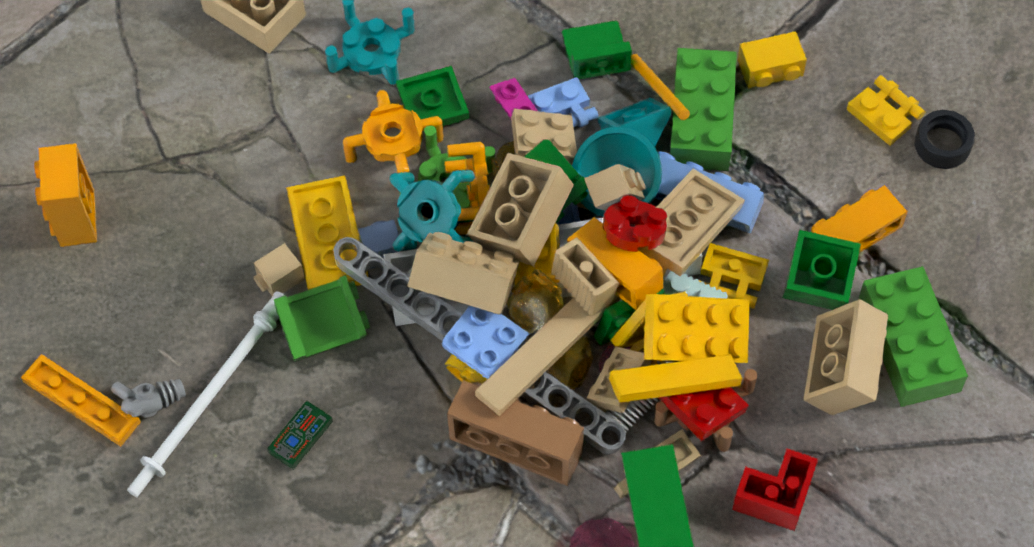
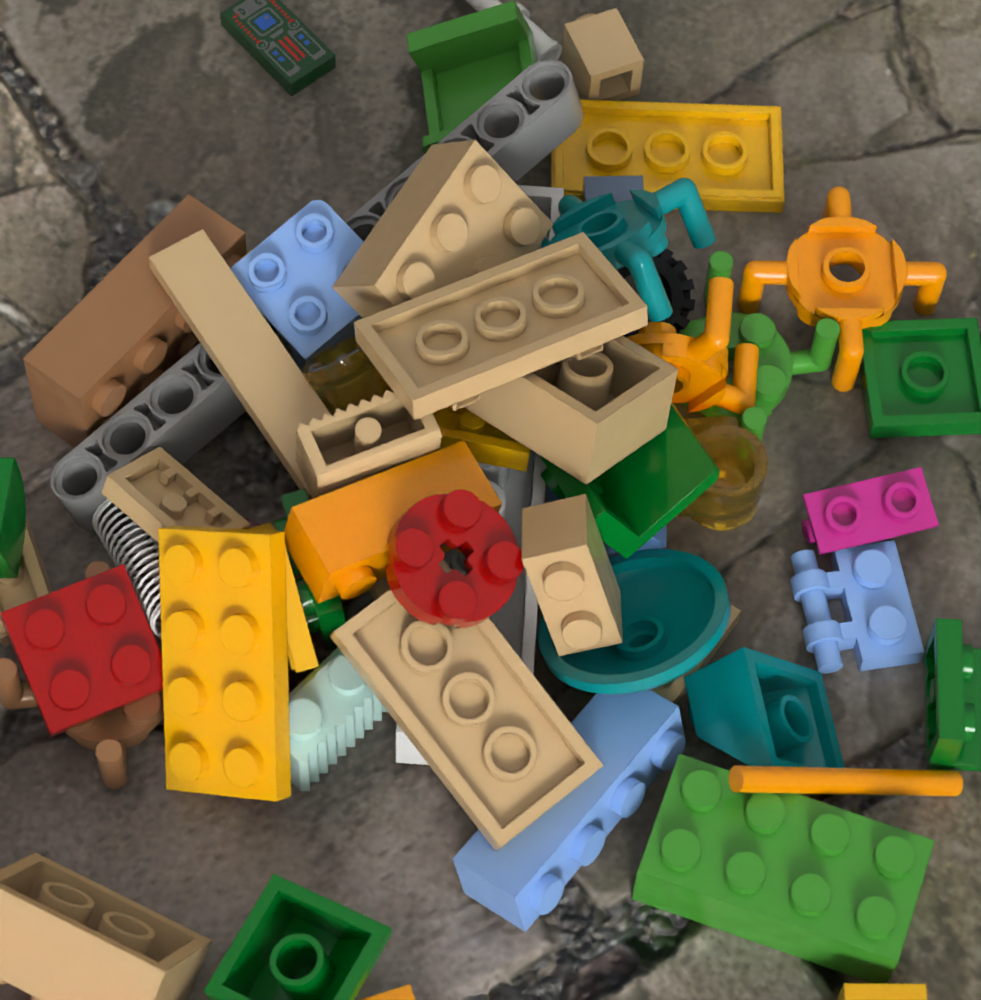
camera: 100 degrees right, 0 degrees up
(514, 222) = (500, 325): none -> tan piece
(533, 126) = (766, 521): tan plate -> none
(573, 364) = (249, 465): clear yellow piece -> none
(675, 378) = (125, 587): yellow tile -> none
(736, 268) = (382, 826): yellow plate -> none

